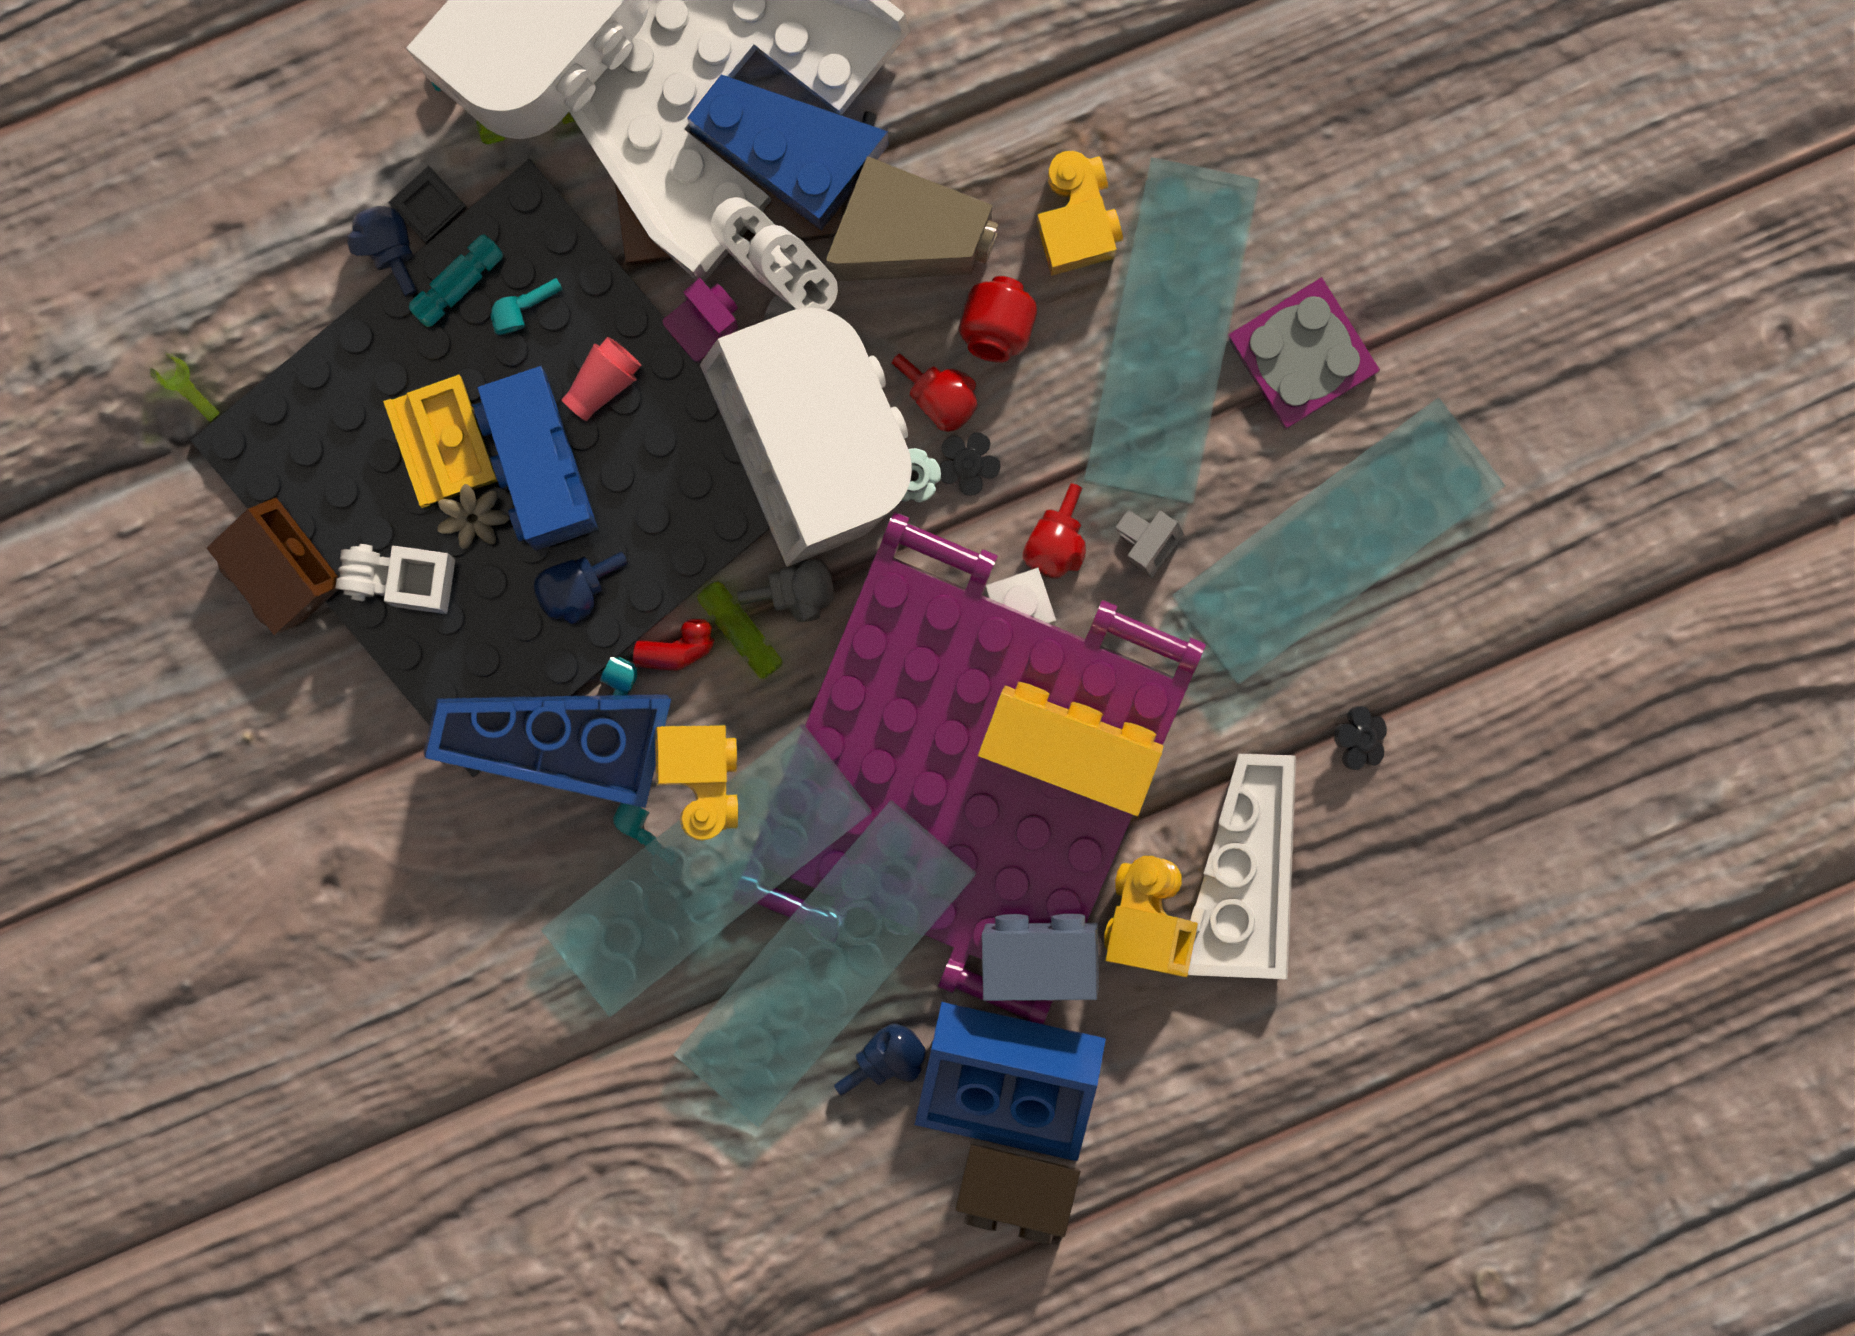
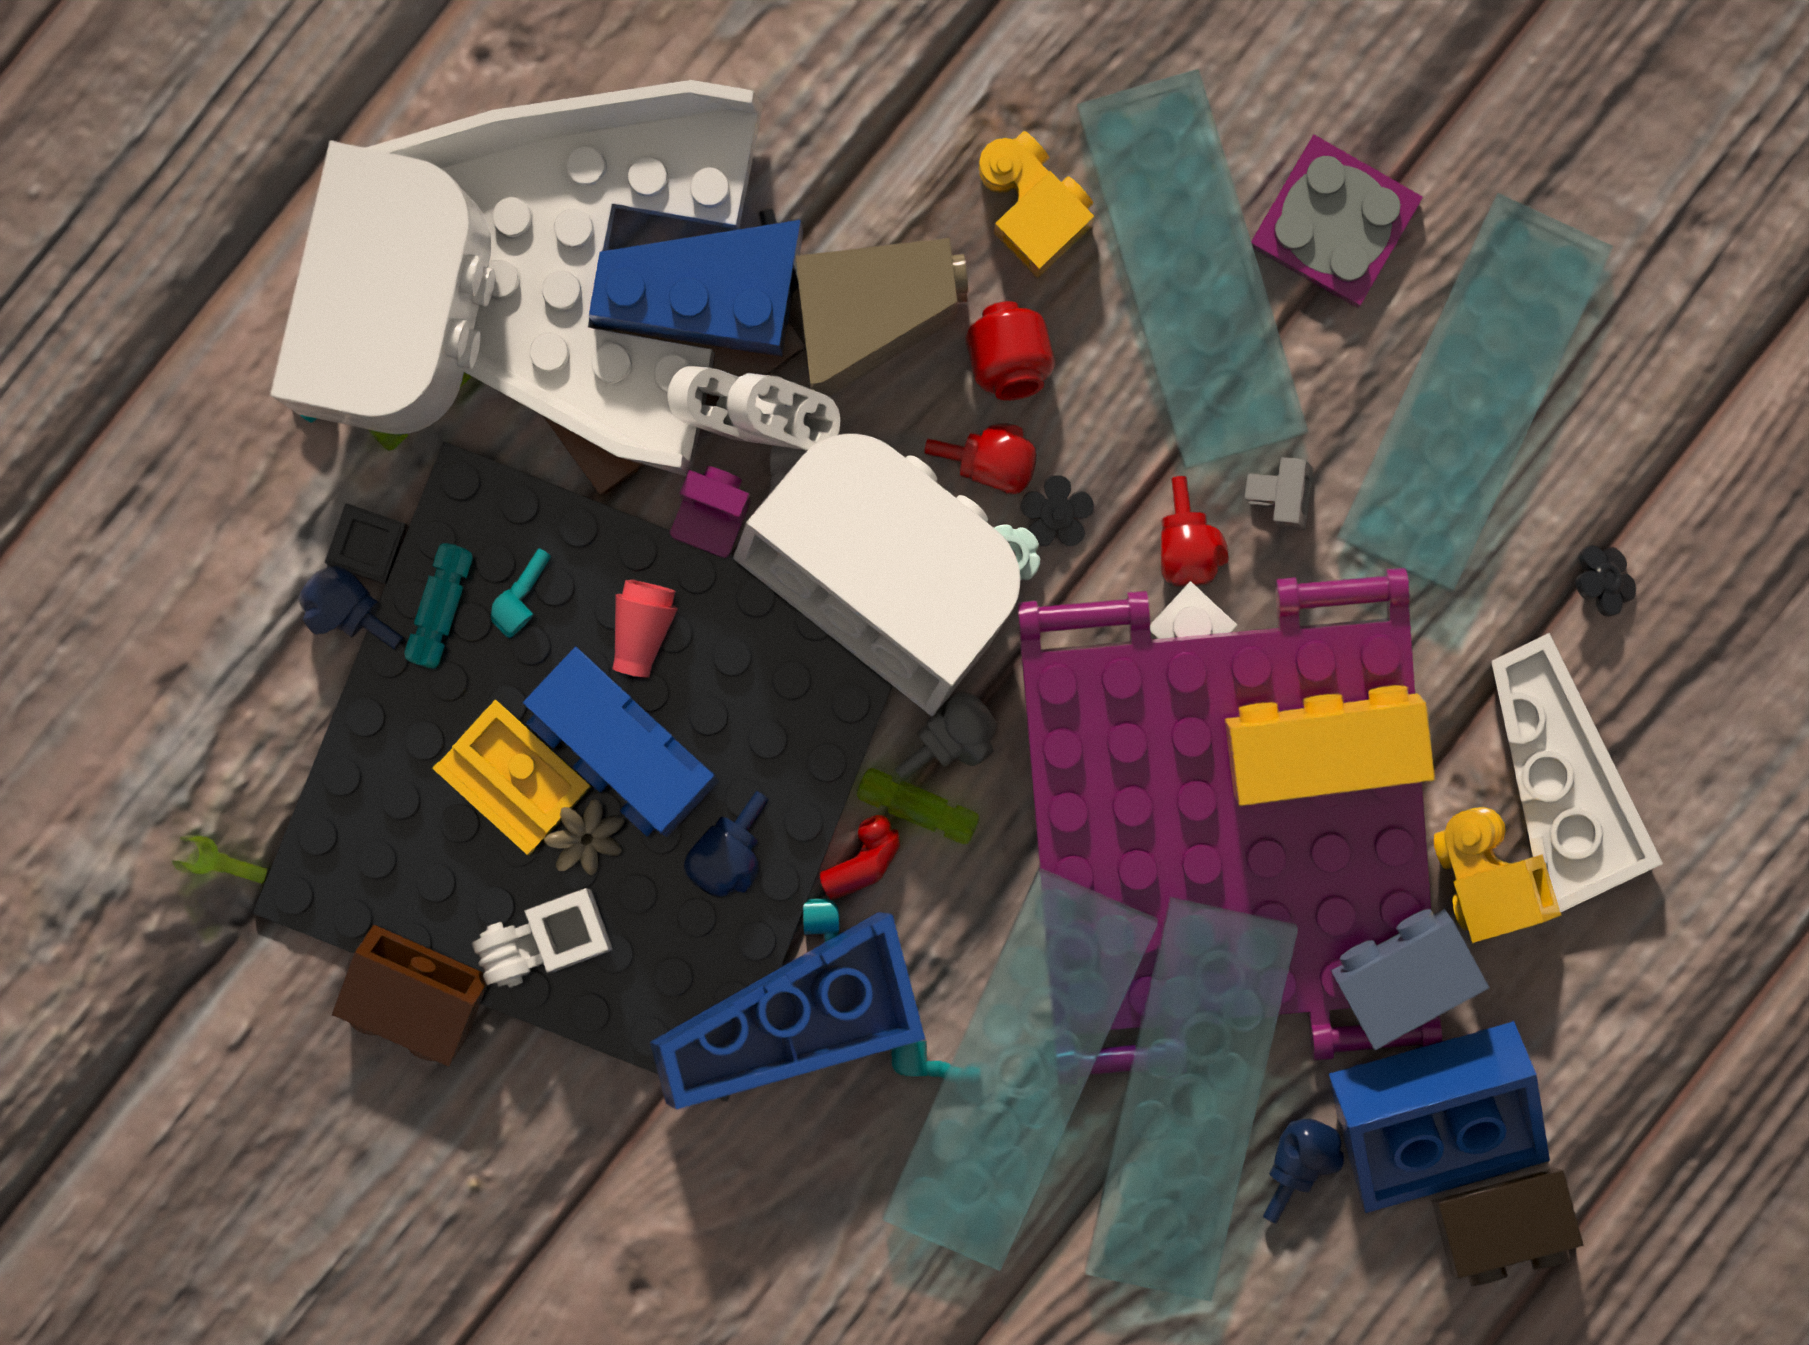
camera: 30 degrees left, 0 degrees up
(700, 761) = (960, 962): yellow brick -> none

